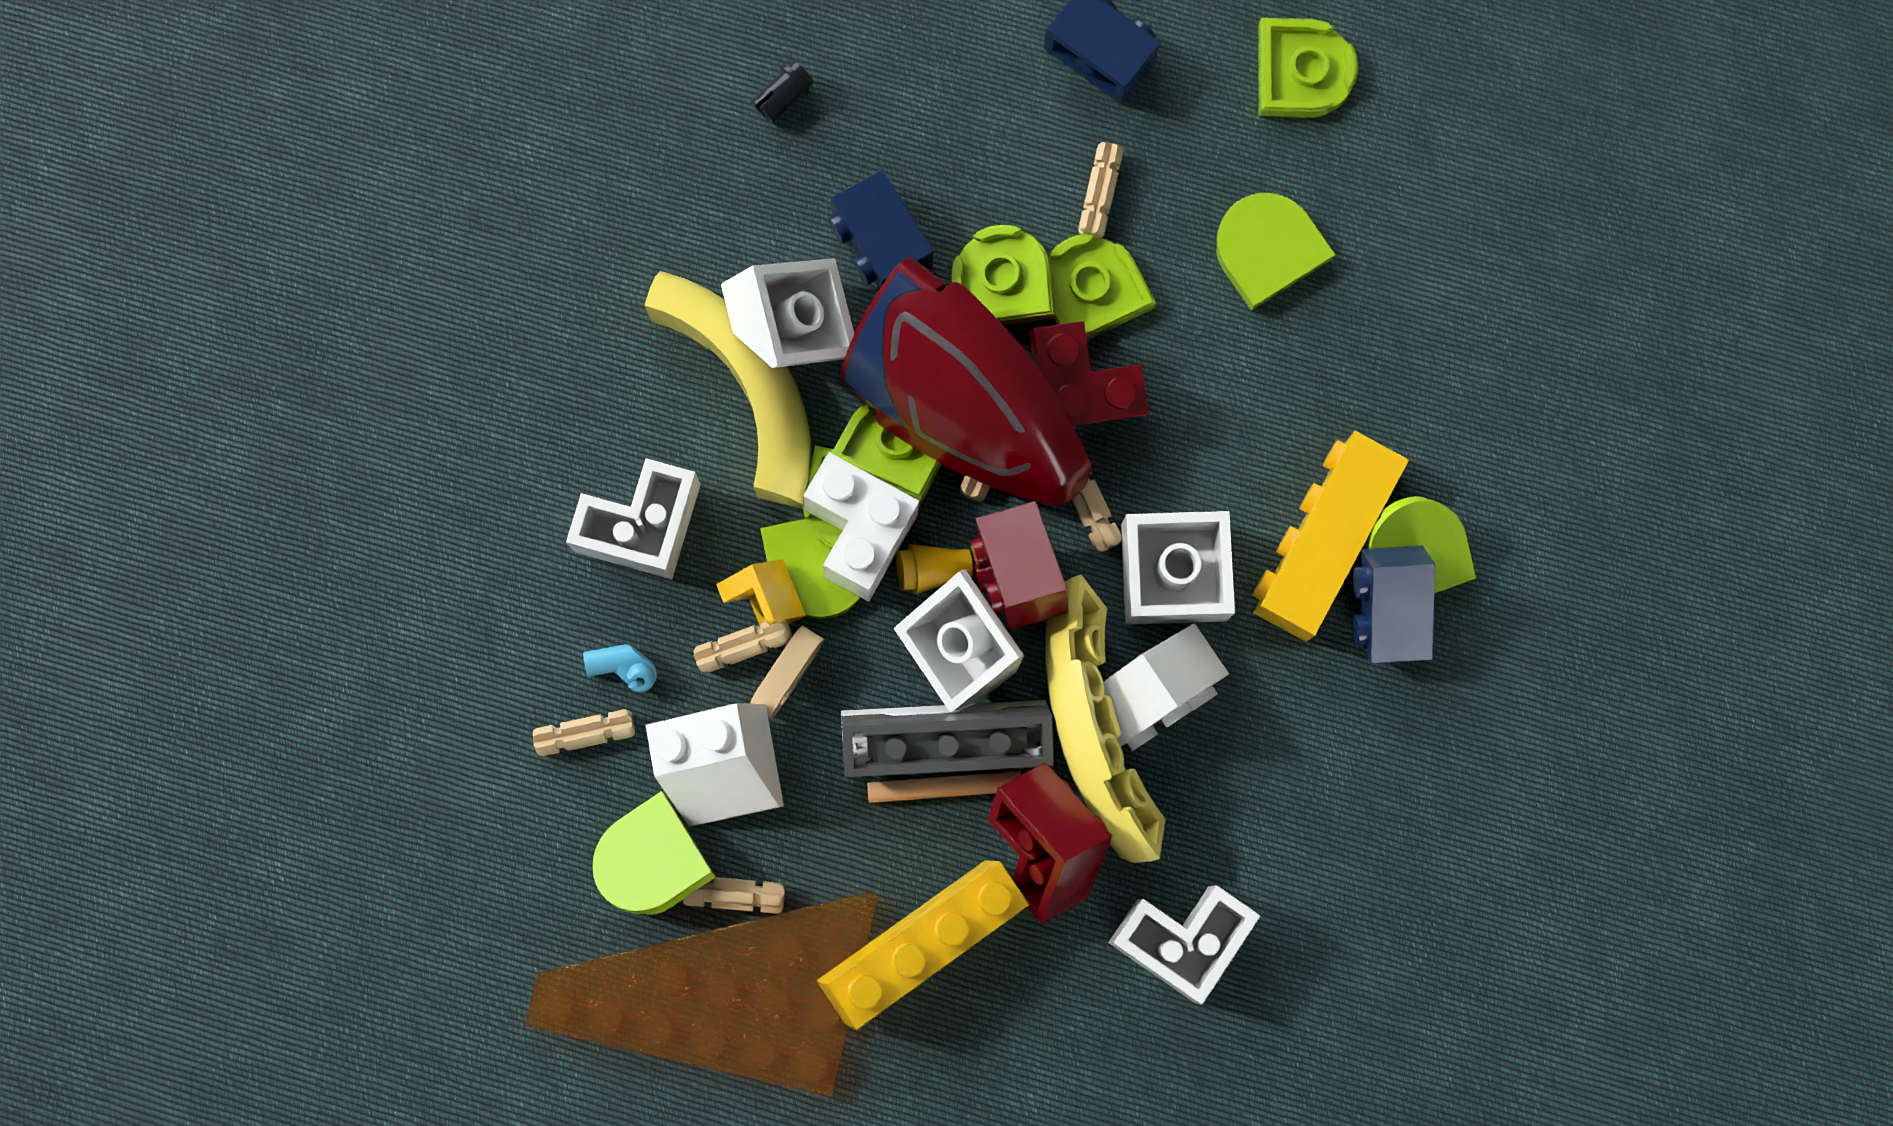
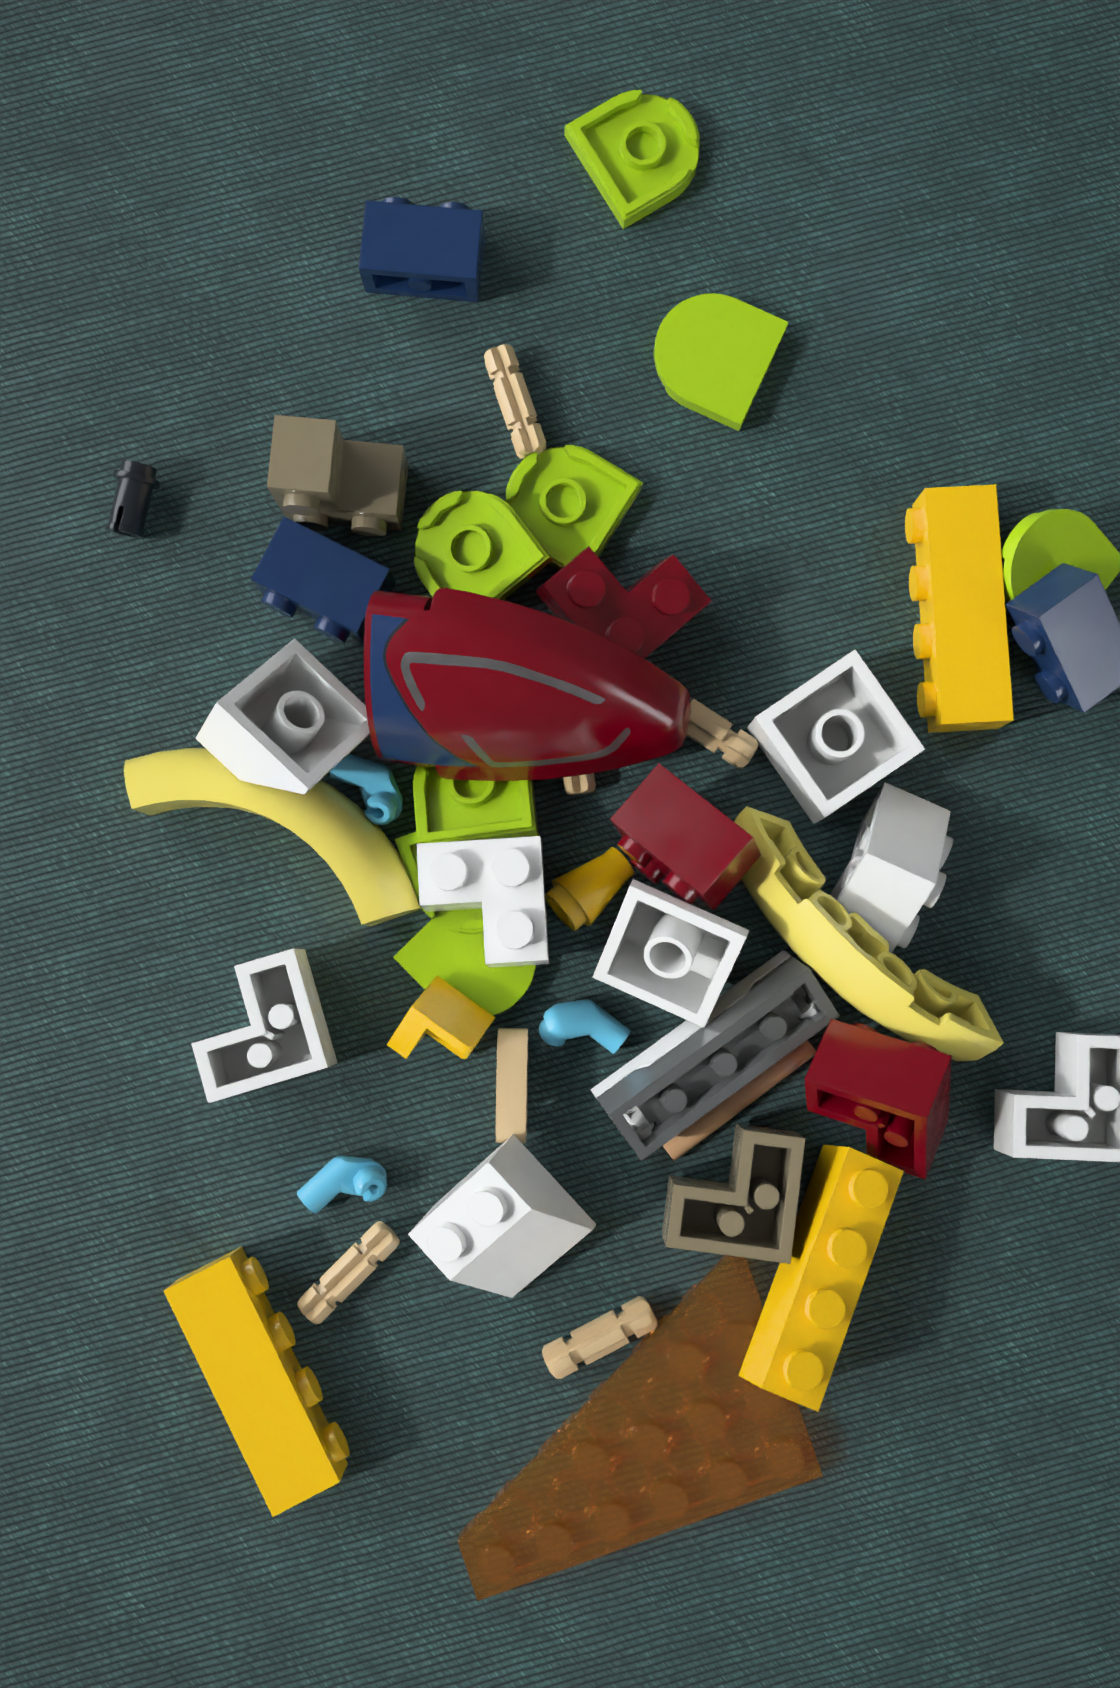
camera: 25 degrees left, 5 degrees up
(472, 764) = (259, 1380): none -> yellow brick
(649, 860) = (496, 1360): tile -> none
(741, 645) = (450, 1088): tan axle -> none
(826, 398) = (376, 787): none -> medium azure arm
(867, 657) = (580, 1019): none -> medium azure arm
(900, 868) = (750, 1213): none -> dark tan brick
(932, 165) = (335, 480): none -> dark tan brick

